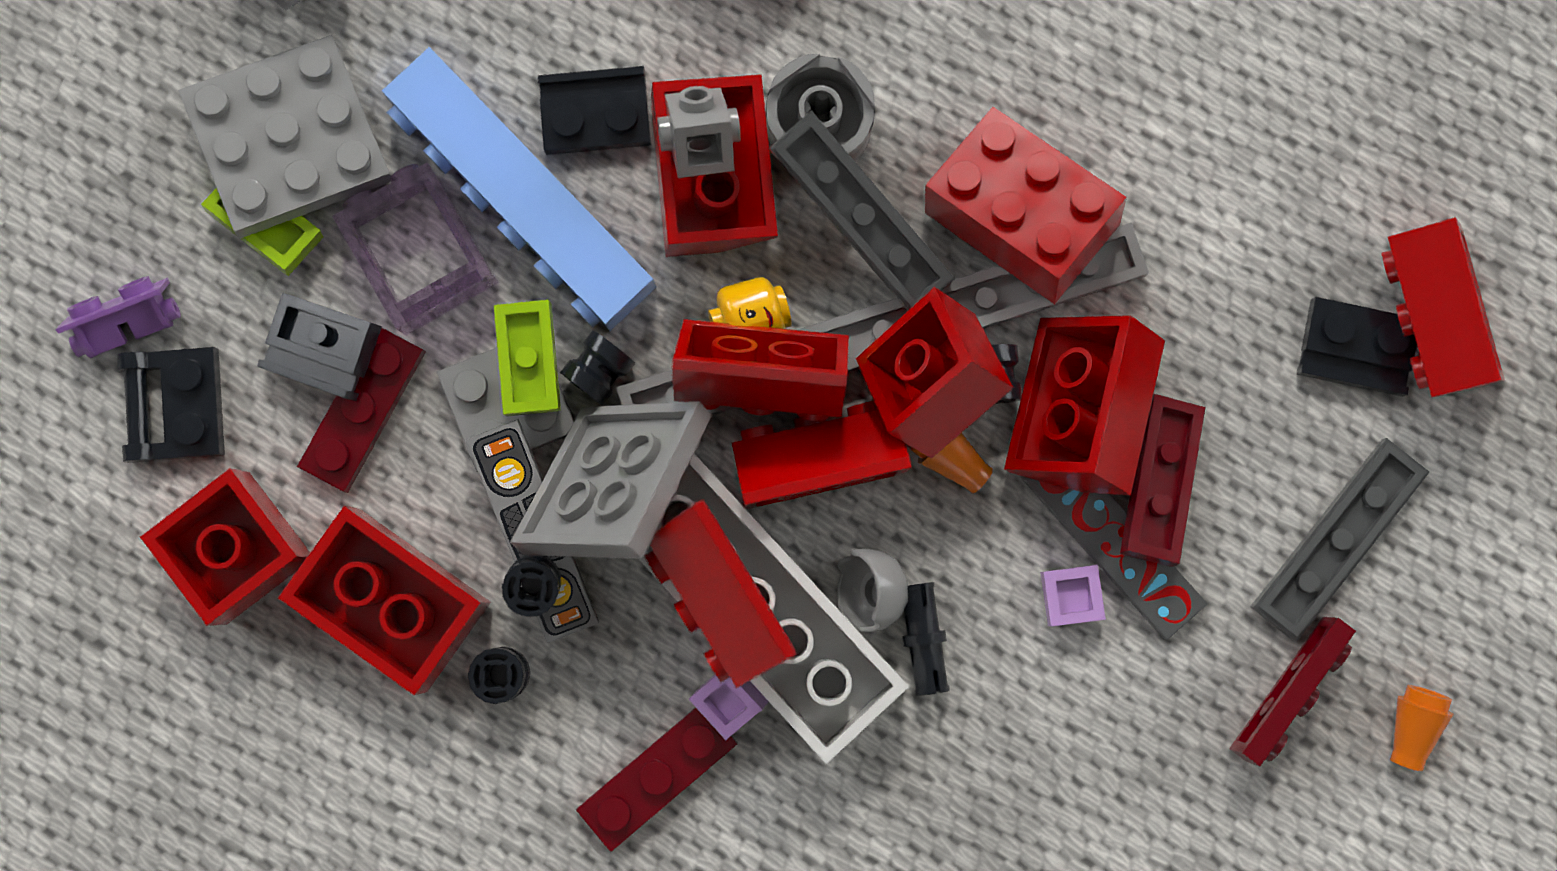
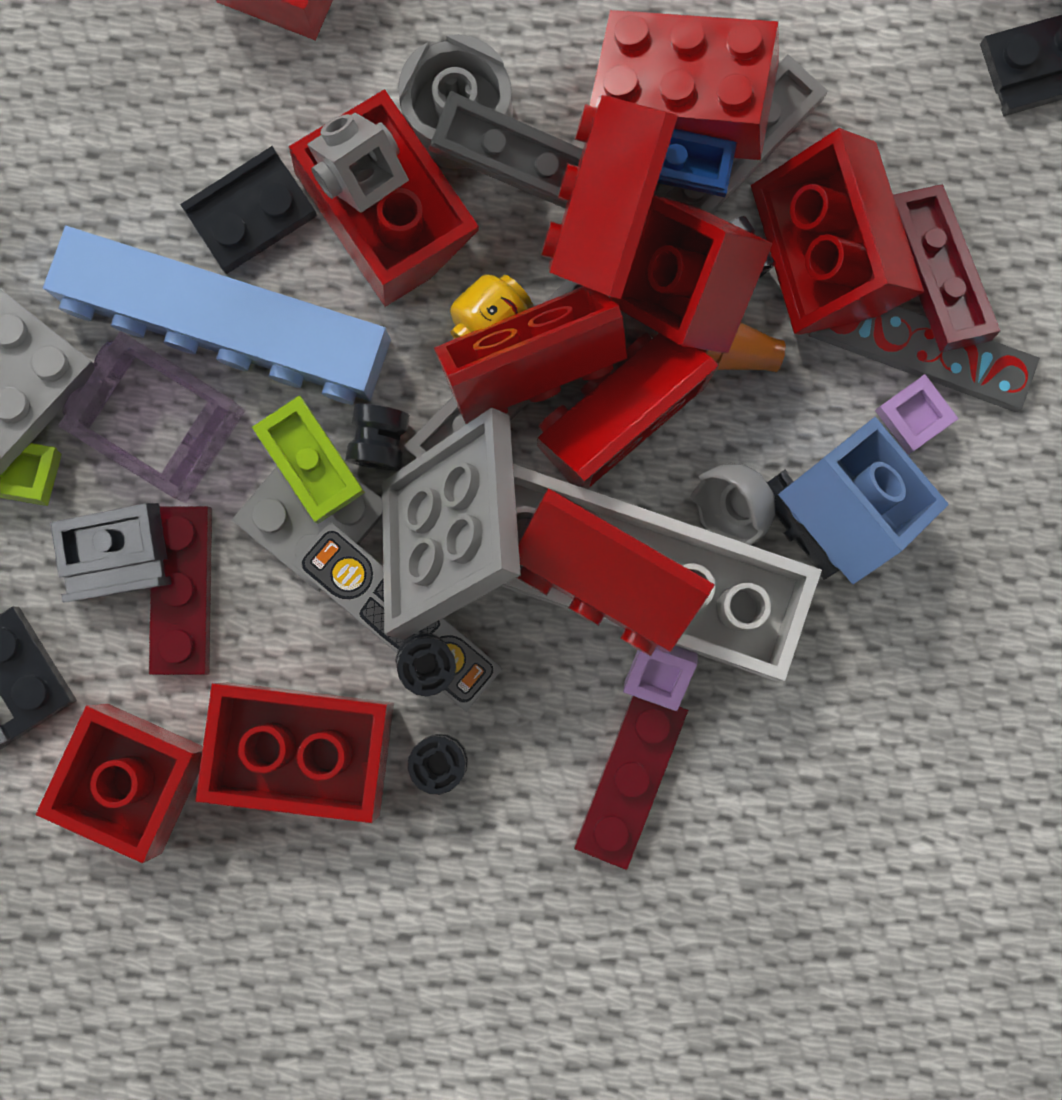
camera: 25 degrees left, 0 degrees up
(895, 272) = (608, 193): none -> red slope
(977, 265) = (698, 163): none -> blue slope
(980, 647) = (864, 501): none -> medium blue brick

